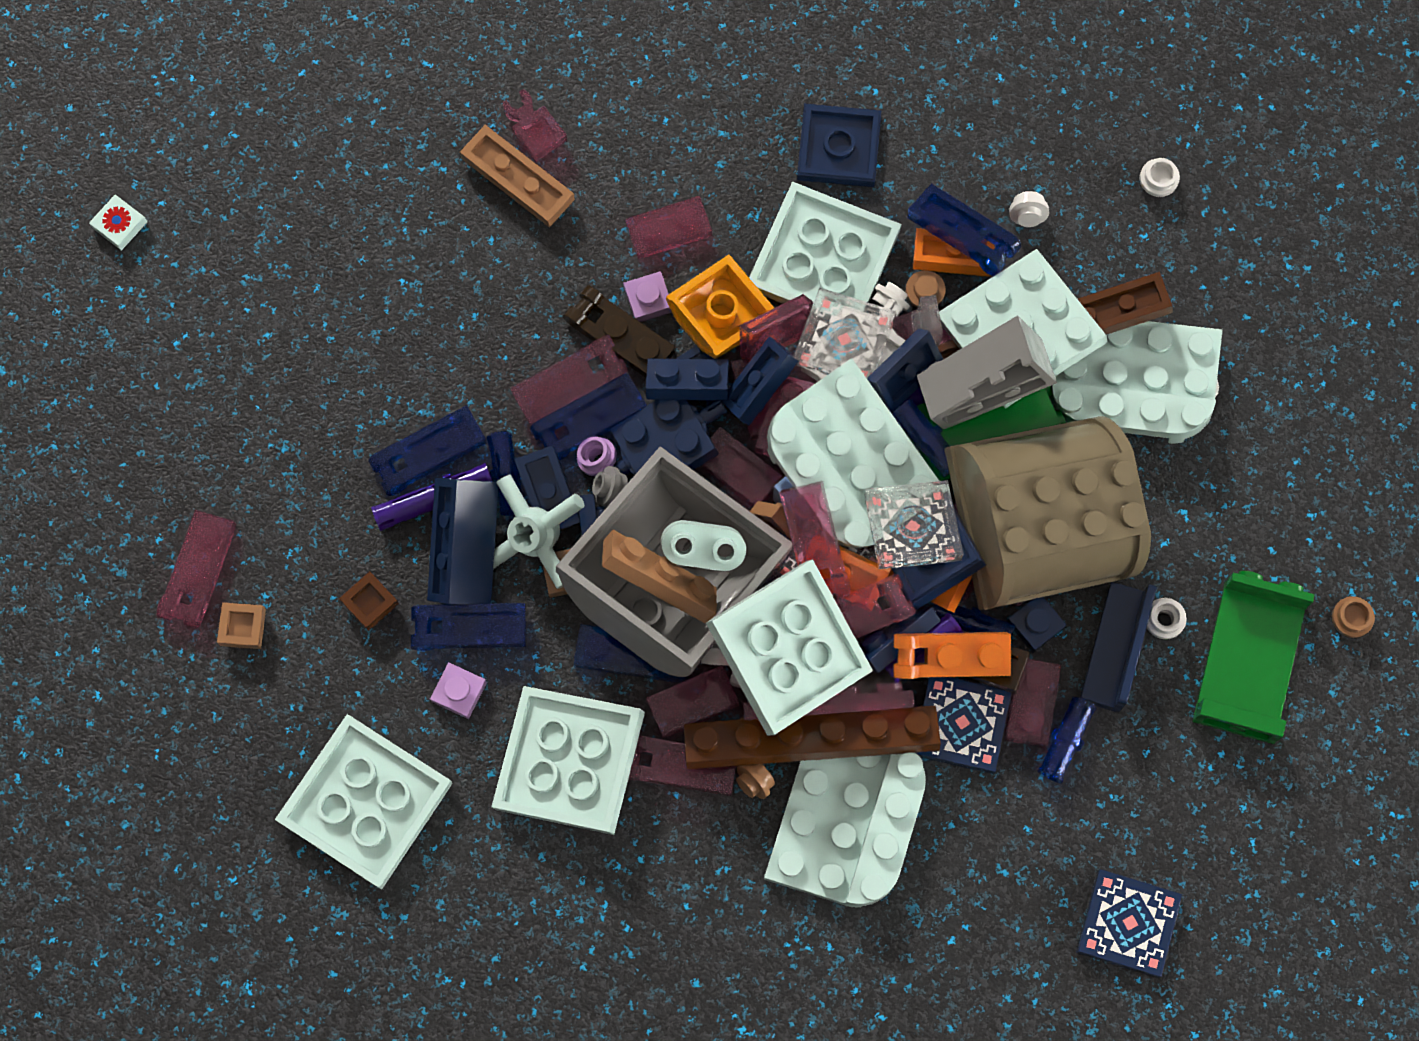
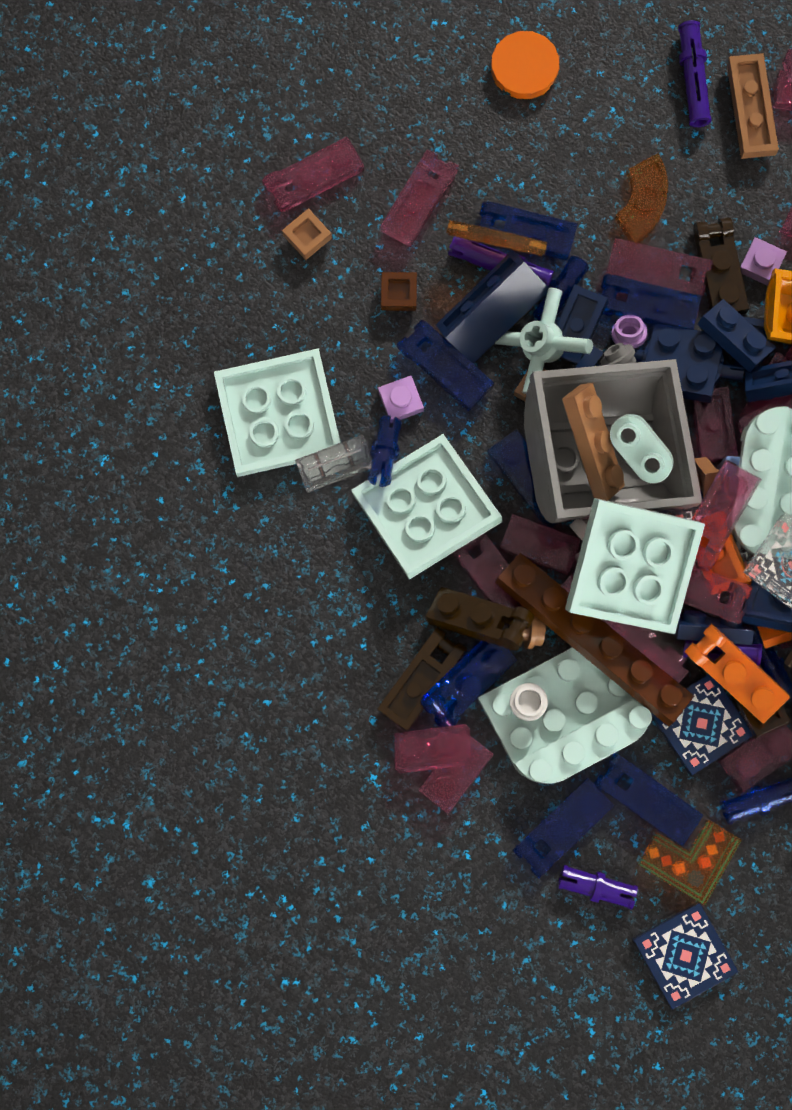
camera: 45 degrees right, 5 degrees up
(291, 310) = (525, 64): none -> orange tile
(309, 507) = (418, 198): none -> clear pink plate
(412, 163) = (691, 38): none -> dark purple pin
(412, 480) = (496, 238): none -> clear orange tile
(455, 798) = (334, 463): none -> clear tile
(489, 747) = (385, 451): none -> clear blue pin
(503, 330) = (647, 199): none -> clear orange tile
(703, 811) = (479, 618): none -> dark brown plate
(704, 910) = (404, 699): none -> dark brown plate
(743, 872) = (466, 682): none -> clear blue plate
(768, 957) = (432, 748): none -> clear pink plate
(806, 957) = (448, 784): none -> clear pink plate
(809, 840) = (528, 702): none -> white plate
(935, 915) = (564, 826): none -> clear blue plate
(982, 825) = (650, 800): none -> clear blue plate
(1008, 937) = (597, 887): none -> dark purple pin
(1071, 847) = (694, 870): none -> clear orange tile

